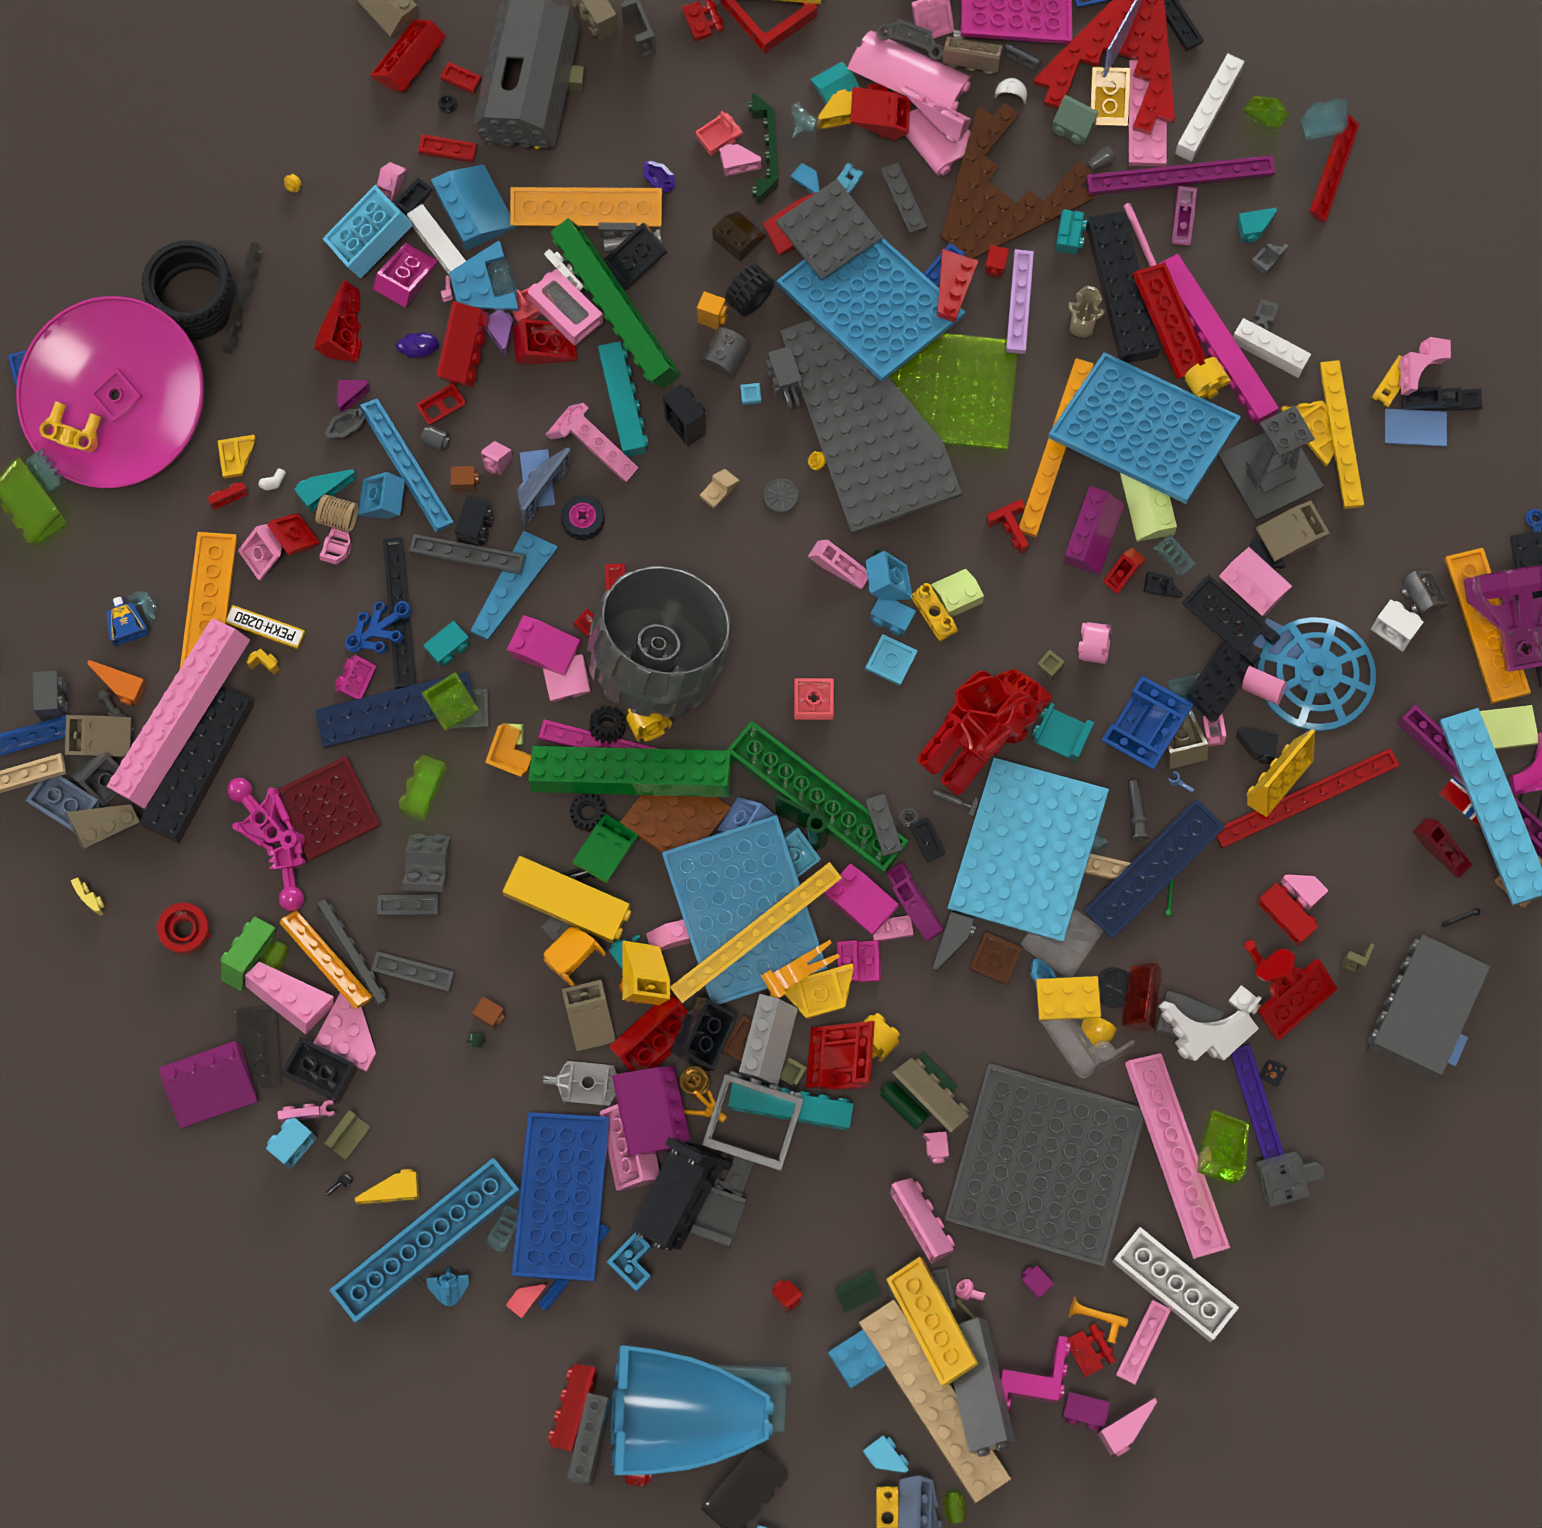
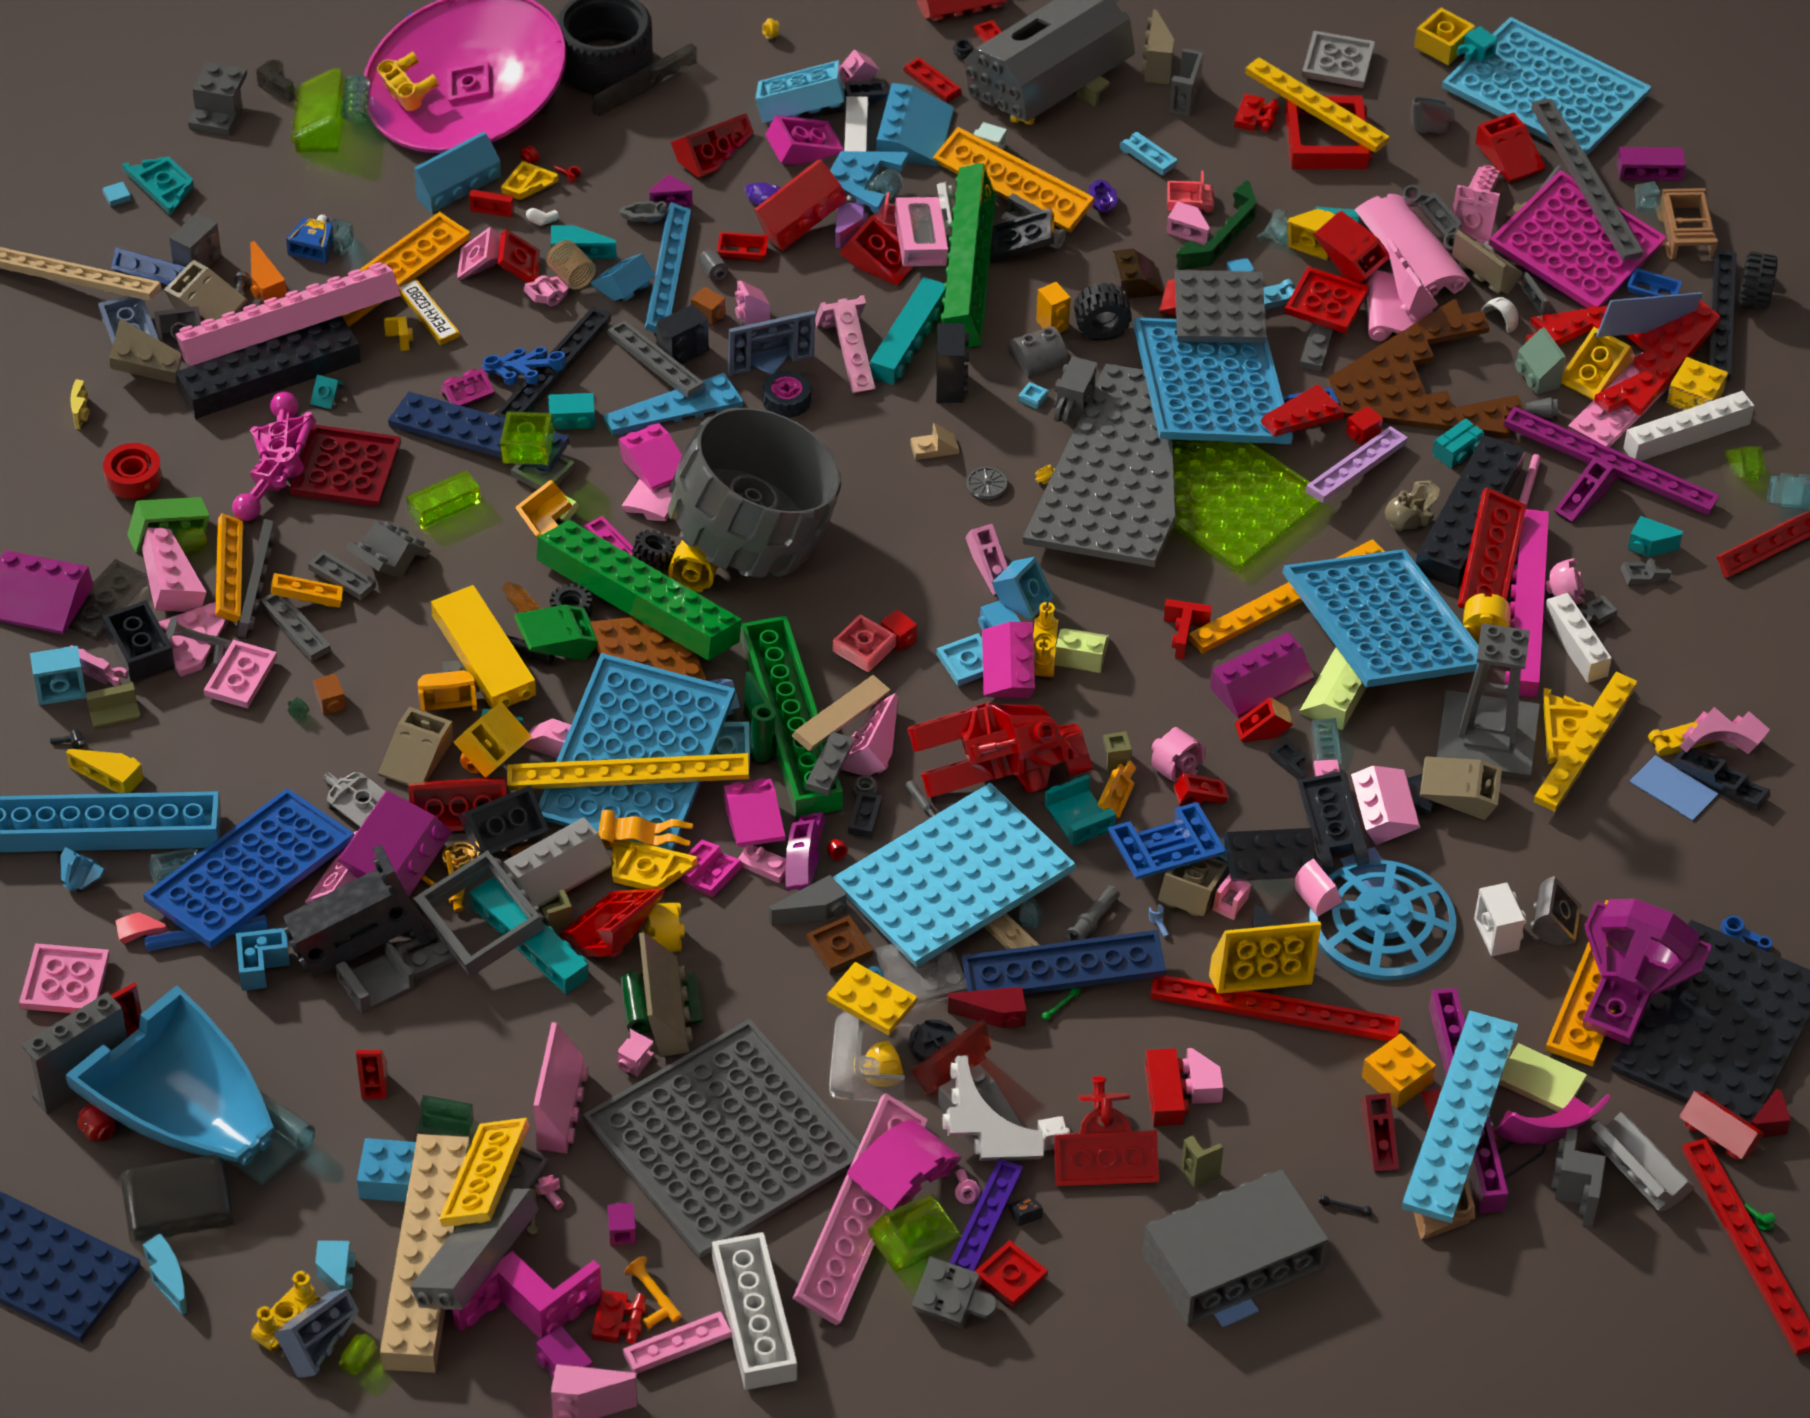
camera: 35 degrees right, 25 degrees down
(183, 489) = (456, 172): none -> dark azure slope
(216, 430) = (530, 155): none -> red plate
(255, 752) = (325, 391): none -> teal bracket
(256, 424) = (571, 173): none -> red hand
(342, 1048) = (220, 644): none -> dark grey piece
(398, 939) = (306, 590): none -> light orange plate
(411, 1041) = (240, 674): none -> bright pink plate
(513, 1377) = (63, 978): none -> bright pink plate
(537, 177) = (992, 134): none -> light aqua brick
(553, 834) = (519, 597): none -> clear orange plate
(658, 112) = (1149, 153): none -> medium azure plate
(828, 668) = (902, 627): none -> red brick
(853, 774) = (841, 713): none -> tan tile
(883, 772) = (874, 740): none -> bright pink wedge
(890, 167) = (1326, 300): none -> red plate
(925, 645) = (1008, 660): none -> dark pink slope
(931, 882) = (837, 849): none -> red hinge
(1074, 696) = (1118, 789): none -> light orange plate
(1128, 658) = (1198, 788): none -> red plate
(1136, 932) = (996, 1006): none -> dark red slope
(1182, 1105) = (901, 1162): none -> dark pink panel
(1190, 68) = (1696, 385): none -> yellow brick
(1192, 578) = (1325, 767): none -> bright pink plate
(1227, 1087) = (967, 1190): none -> bright pink plate
(1231, 307) = (1565, 580): none -> bright pink cylinder
(1303, 1129) = (1011, 1273): none -> red plate
(1420, 791) = (1398, 1070): none -> light orange brick

